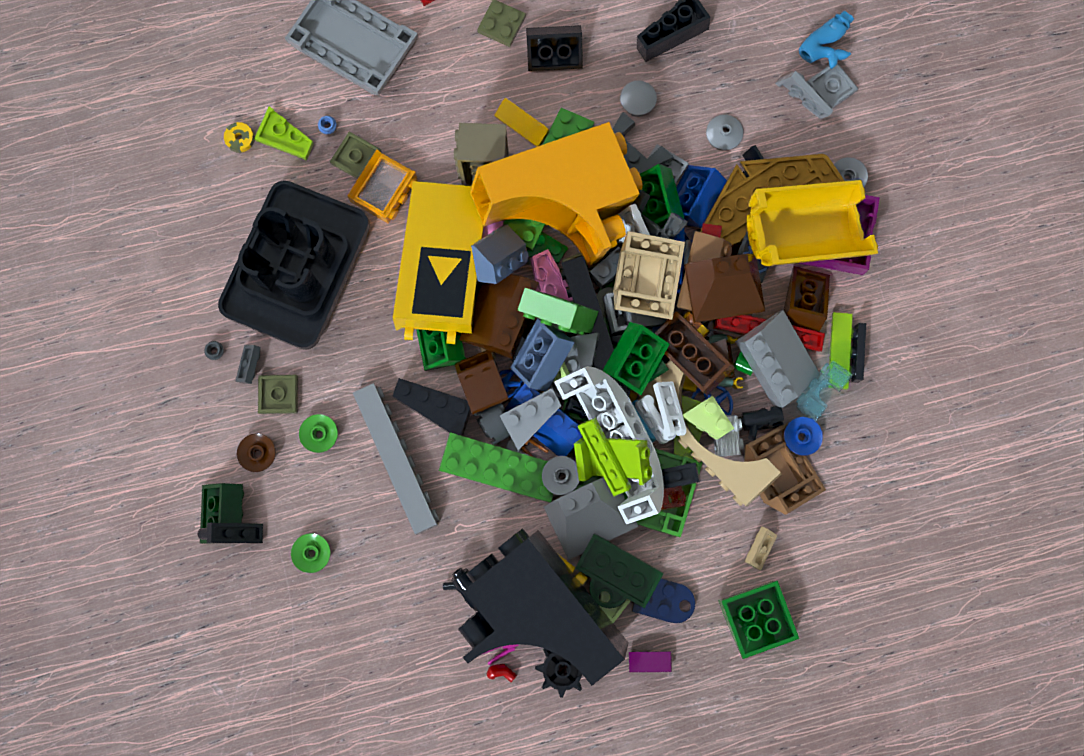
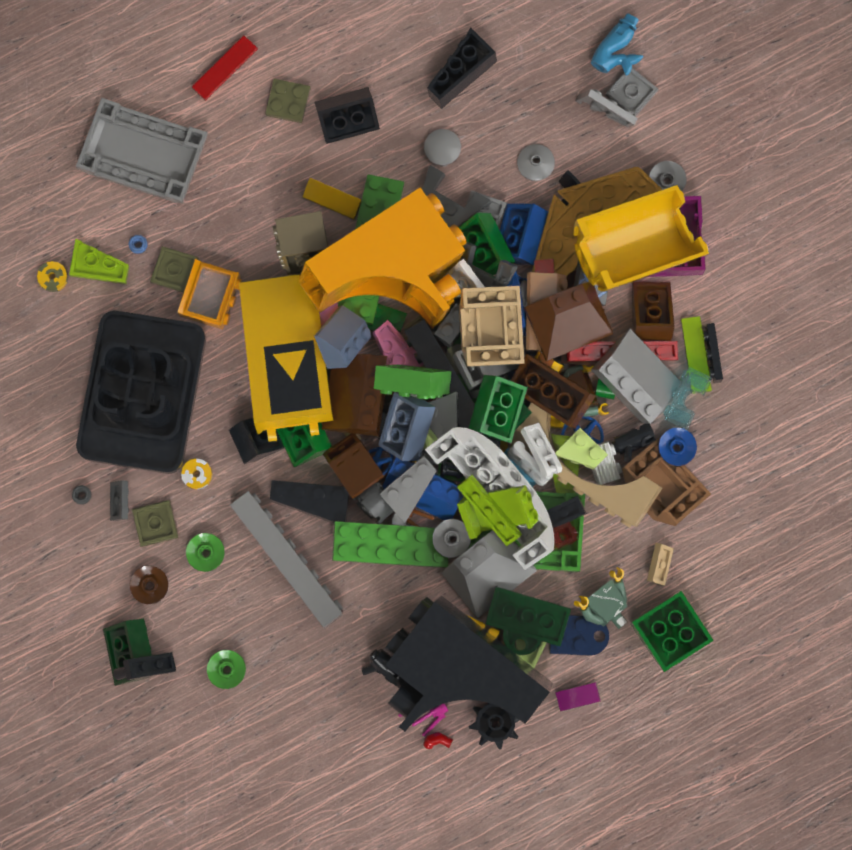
camera: 10 degrees left, 0 degrees up
(333, 363) = (188, 474): none -> yellow piece
(389, 340) = (253, 445): none -> black slope
(700, 574) = (606, 602): none -> sand green torso

